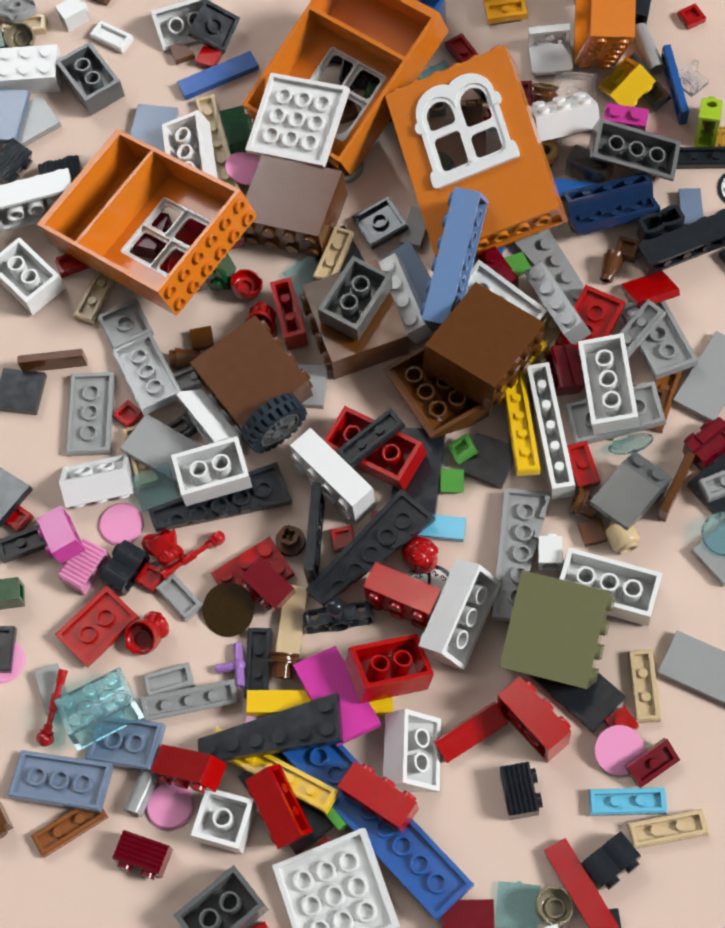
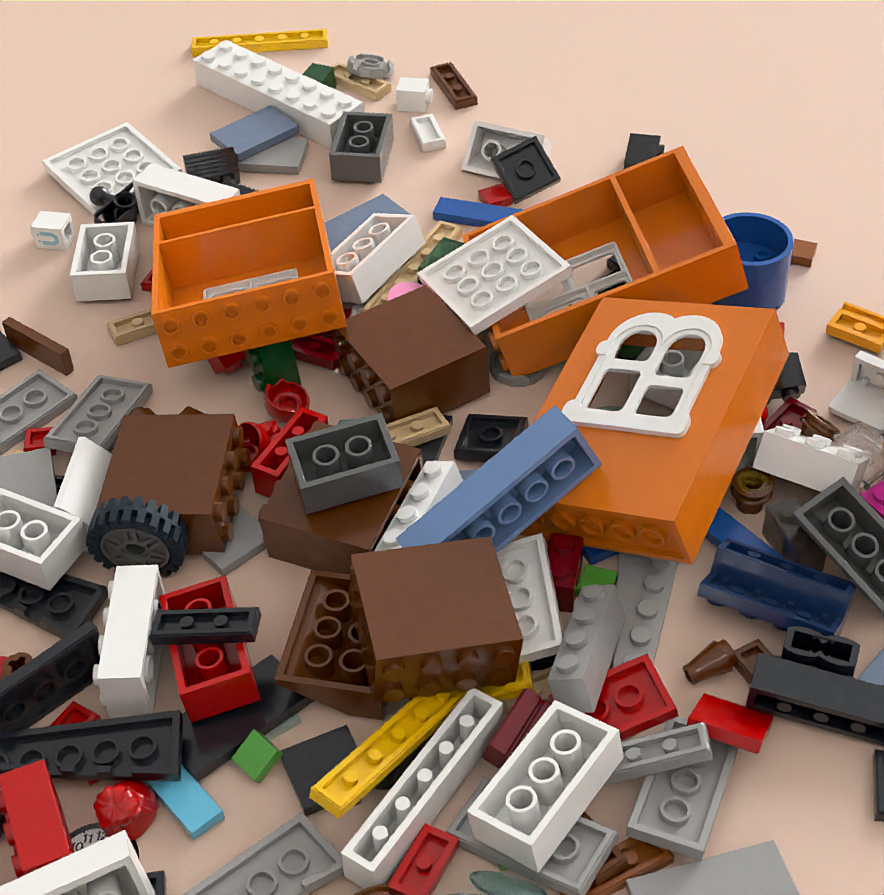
camera: 35 degrees right, 20 degrees down
(19, 35) = (344, 81): dark tan hair -> none
(125, 323) = (139, 362): light grey tile -> none
(181, 53) = (473, 179): reddish brown tile -> none
(462, 449) = (307, 730): bright green tile -> none

